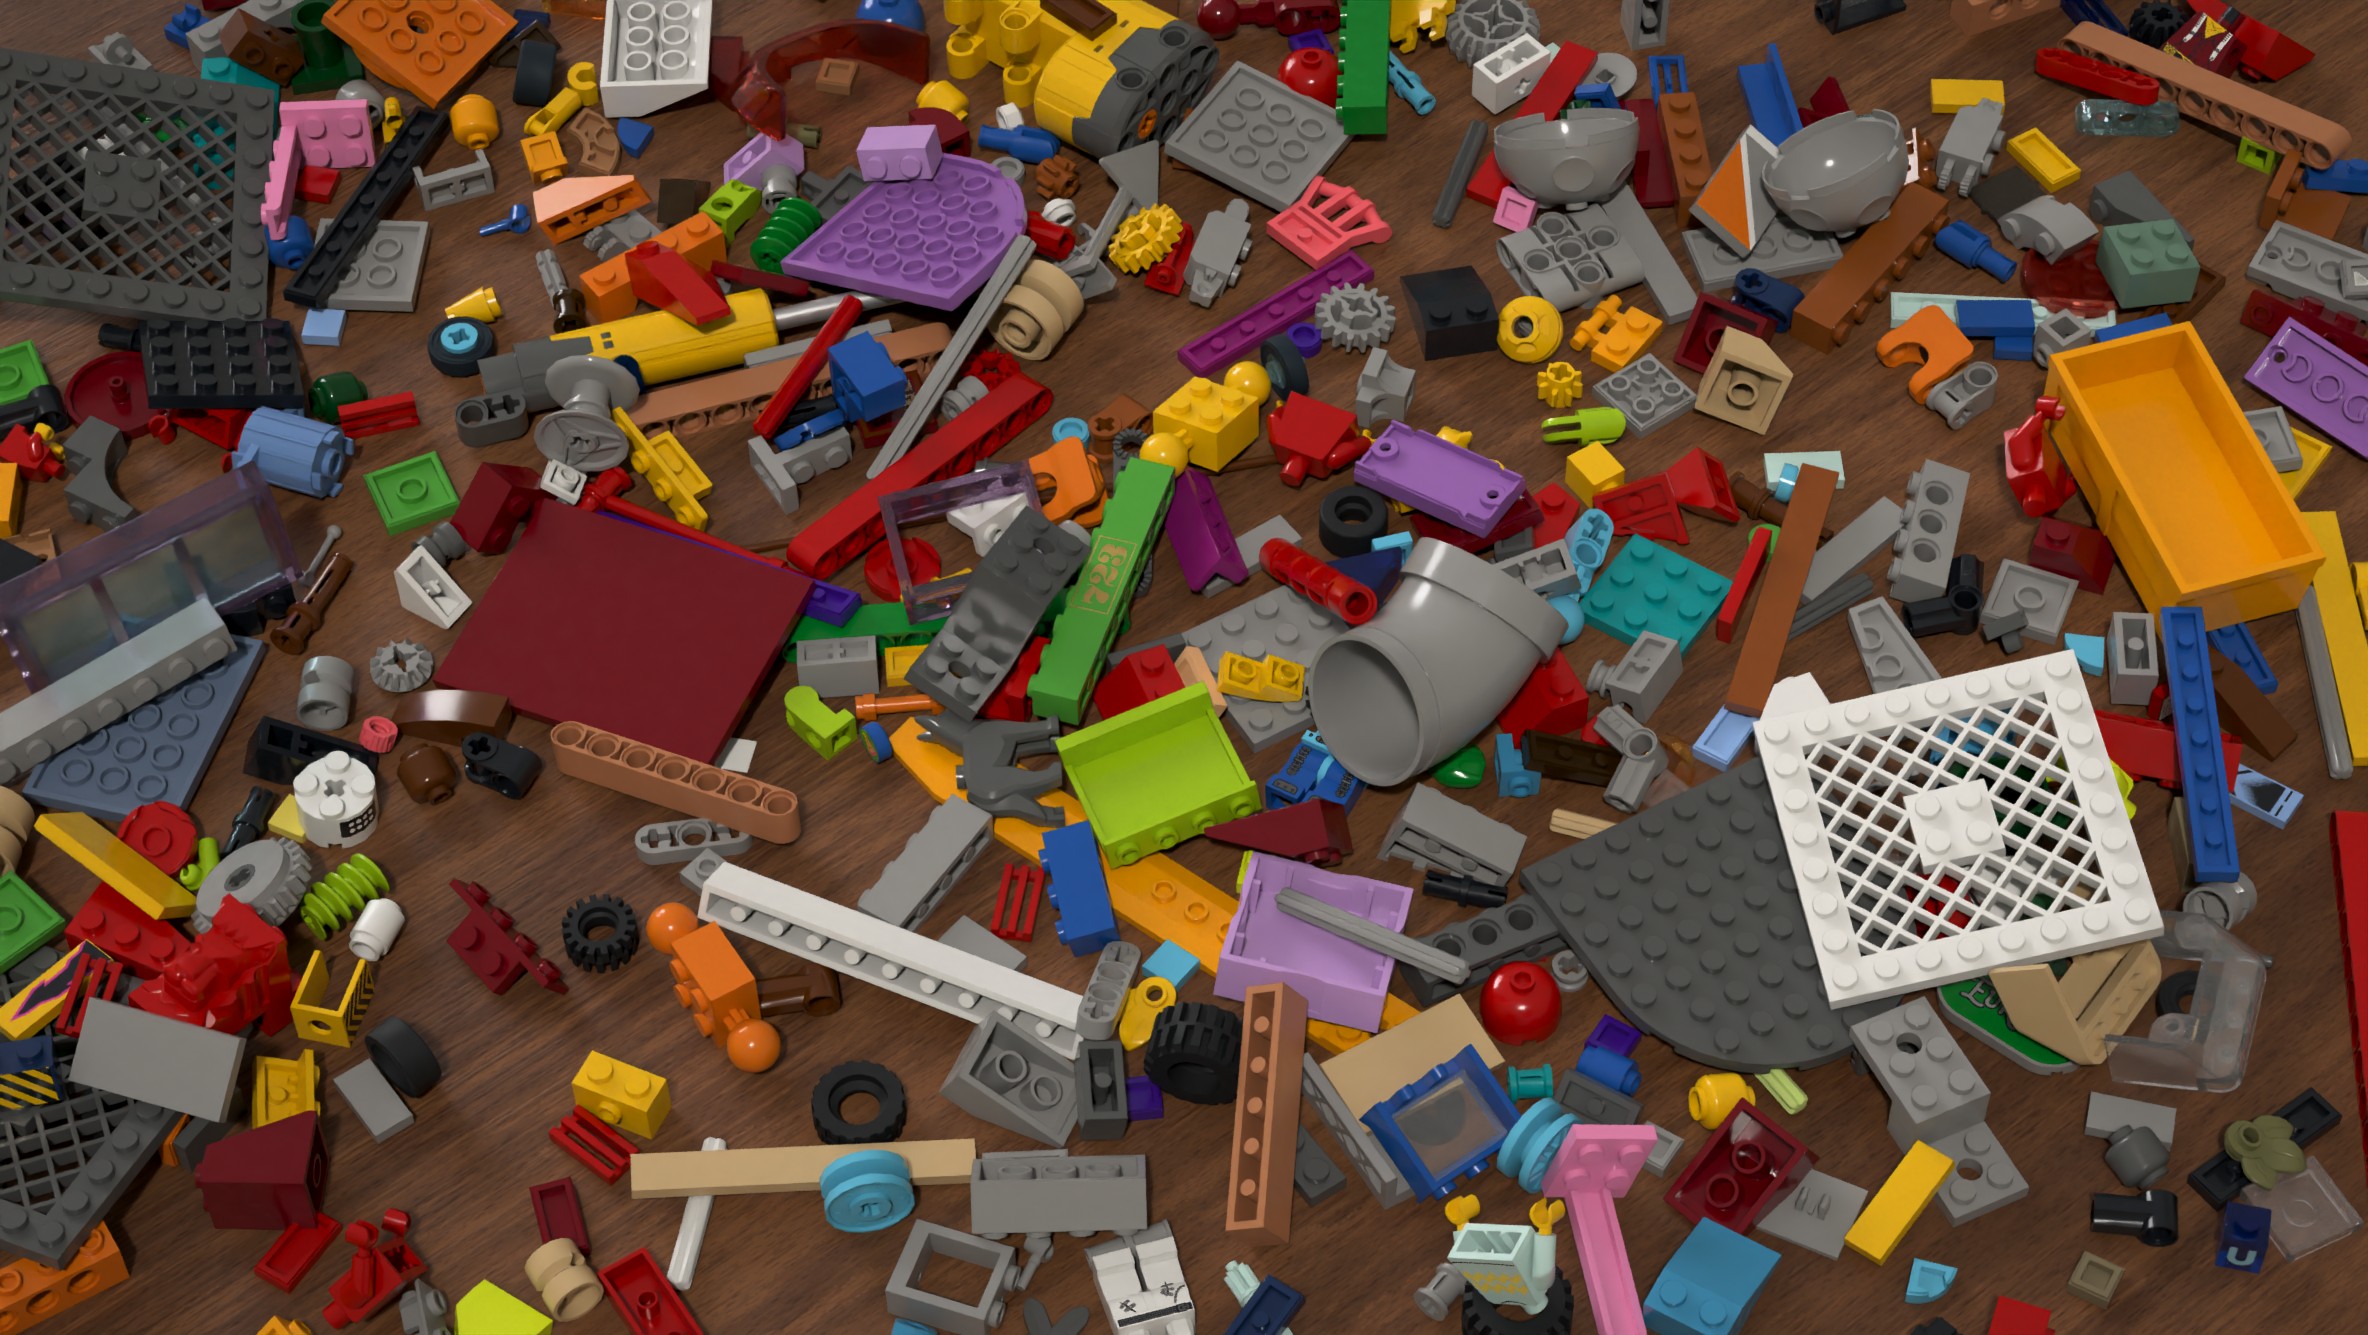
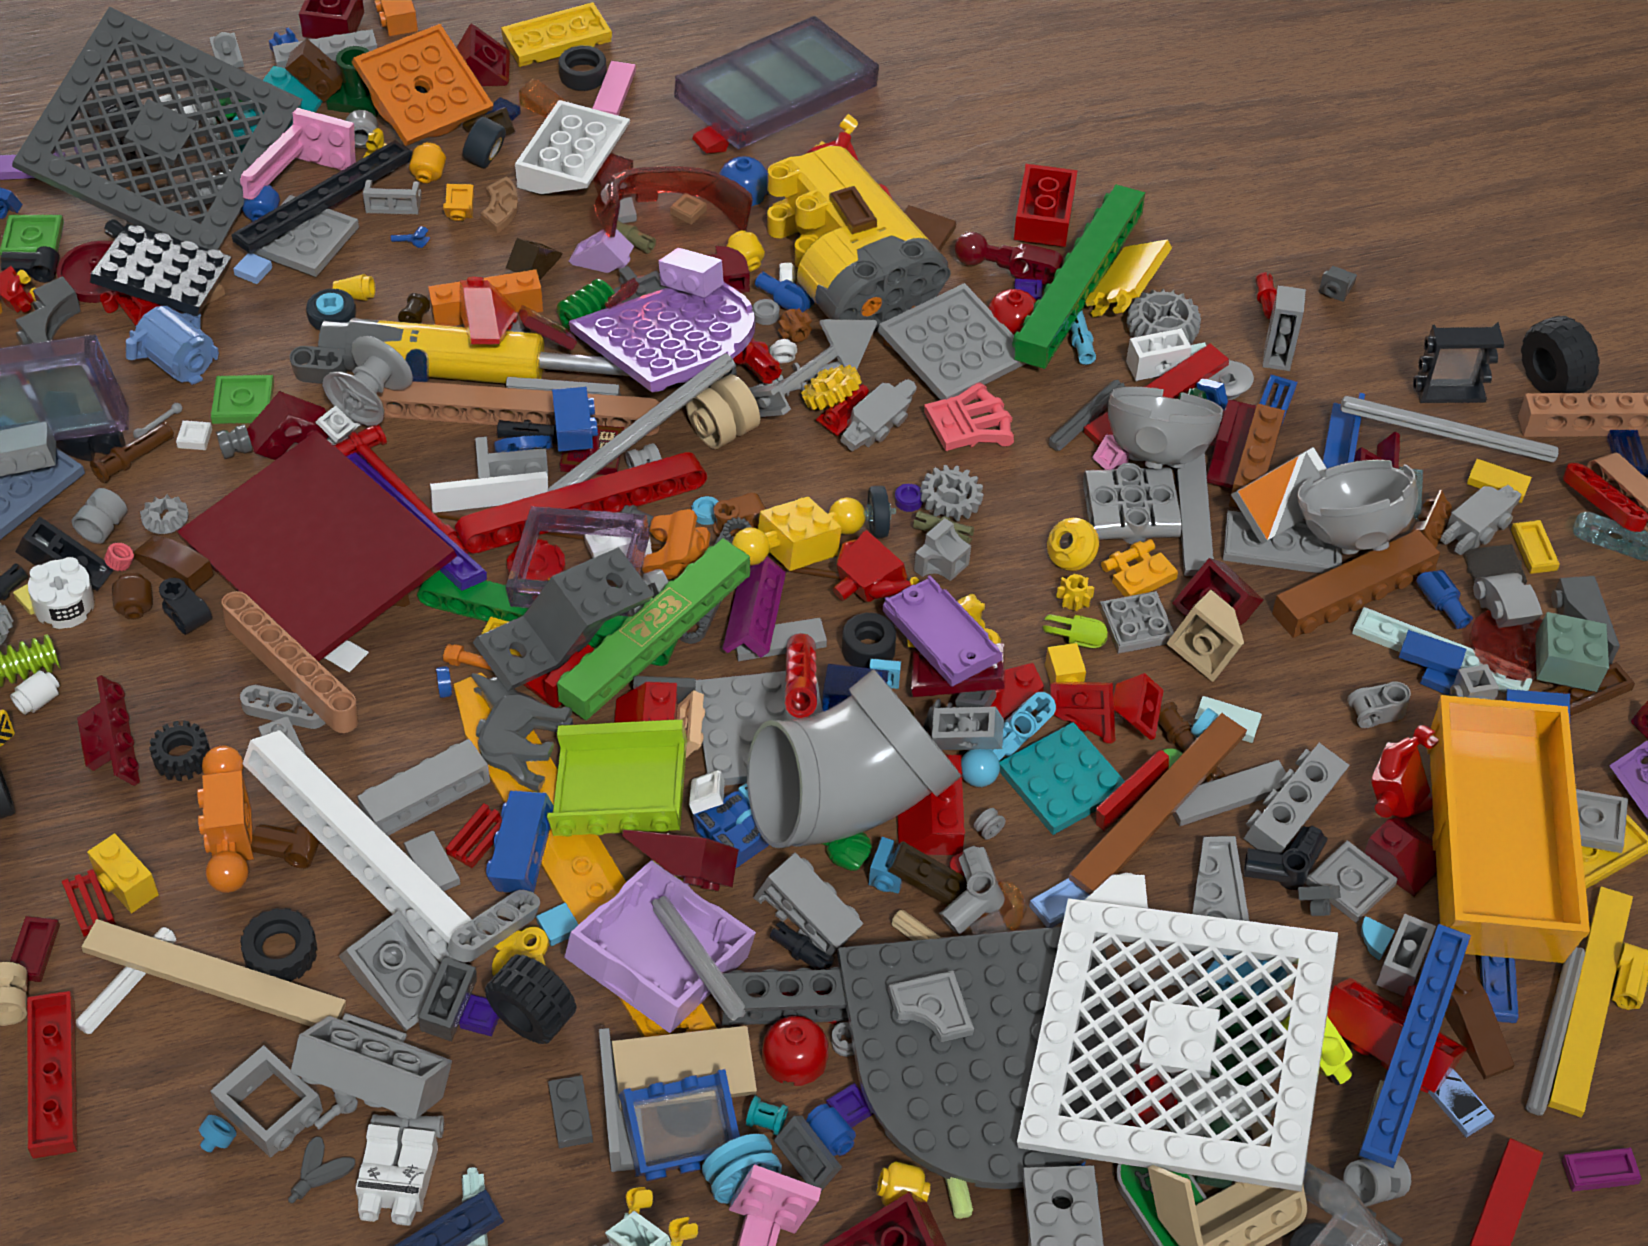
camera: 20 degrees right, 0 degrees up
(317, 184) = (305, 172): red tile -> none
(335, 391) = (230, 317): dark green head -> none
(377, 557) = (194, 435): none -> white tile
(378, 415) = (249, 338): red tile -> none
(429, 590) = (209, 468): white slope -> none
(551, 272) = (419, 279): light grey axle -> none
(581, 92) = (493, 170): yellow piece -> none
(584, 203) = (462, 239): orange slope -> none
(620, 235) = (482, 263): light grey hinge -> none
(634, 136) = (529, 206): blue tile -> none
(669, 471) = (414, 437): yellow bracket -> none
(732, 206) = (560, 275): lime leg -> none
(777, 184) = (603, 268): light grey wheel -> none
(798, 501) = (486, 491): none -> white tile
(807, 367) = (541, 400): red axle -> none
(818, 724) = (415, 662): lime leg -> none
(829, 201) = (626, 291): none -> clear red piece
(839, 666) = (448, 618): light grey hinge -> none
(866, 1191) = (240, 1010): medium azure wheel -> none
(1004, 363) = (684, 439): red gear -> none
(1265, 681) = (729, 730): yellow slope -> none
(1265, 755) = (706, 791): none -> white tile
(1267, 1115) = (549, 1065): nougat brick -> none
(1271, 316) = (895, 472): magenta tile -> none
(1356, 360) = (932, 521): none -> olive pin
(1451, 312) = (1024, 512): black slope -> none
(1646, 674) = (1022, 832): light grey hinge -> none
(1663, 889) = (934, 1002): none -> light grey tile
(1664, 1152) = (837, 1204): light grey tile -> none
(1768, 296) = (1266, 580): dark blue piece -> none
(1831, 603) = (1193, 828): dark grey axle -> none
(1887, 54) = (1449, 429): none -> light grey axle
(1928, 340) = (1369, 651): orange piece -> none

